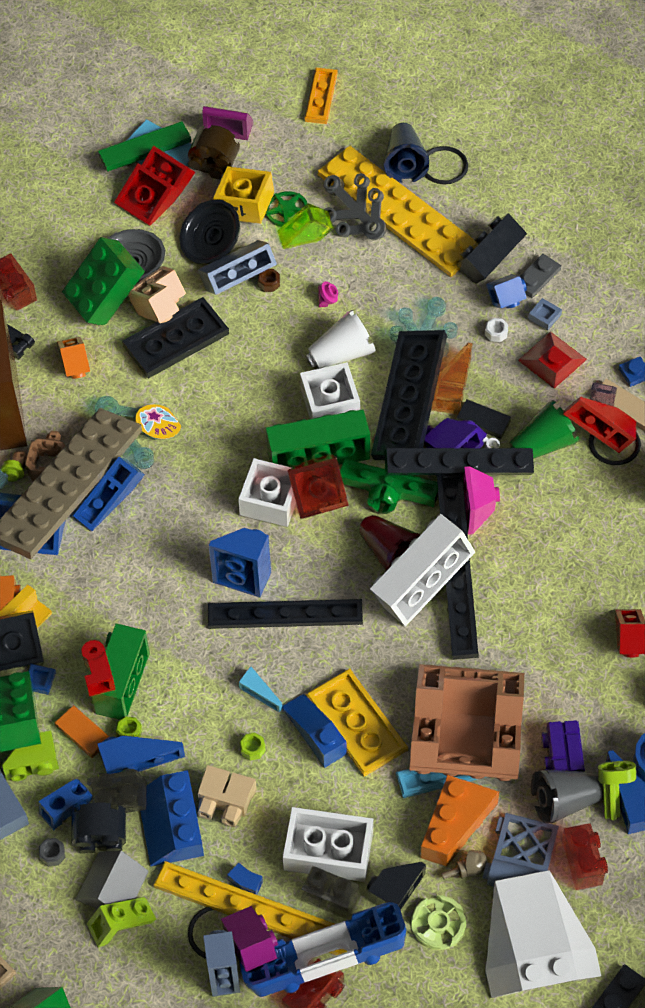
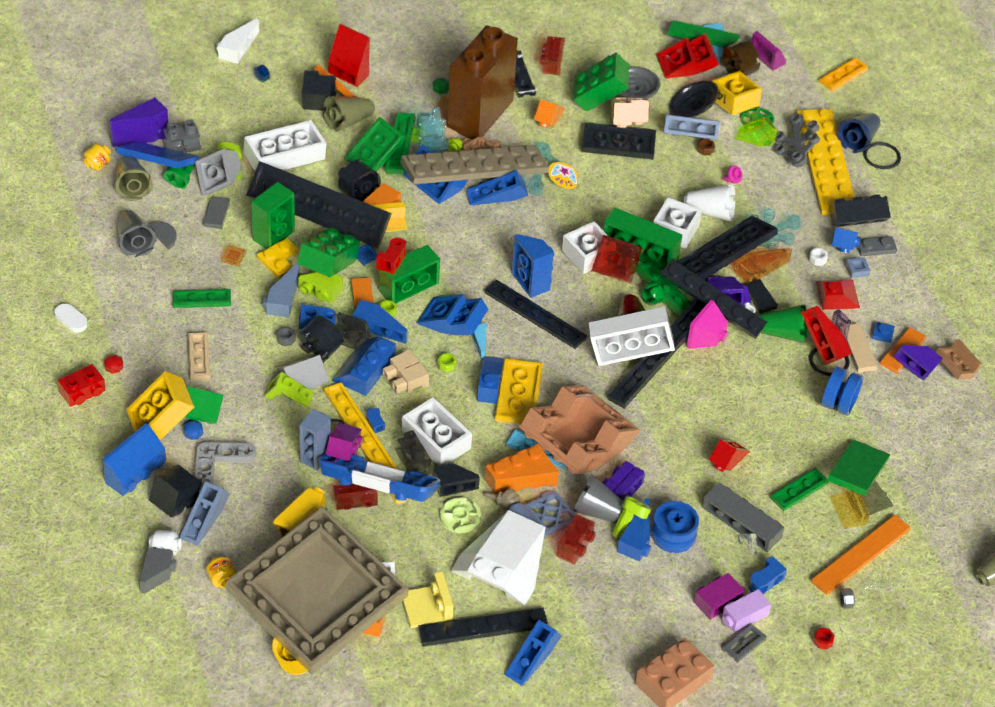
camera: 35 degrees right, 10 degrees down
(206, 683) = (453, 314): none -> blue slope

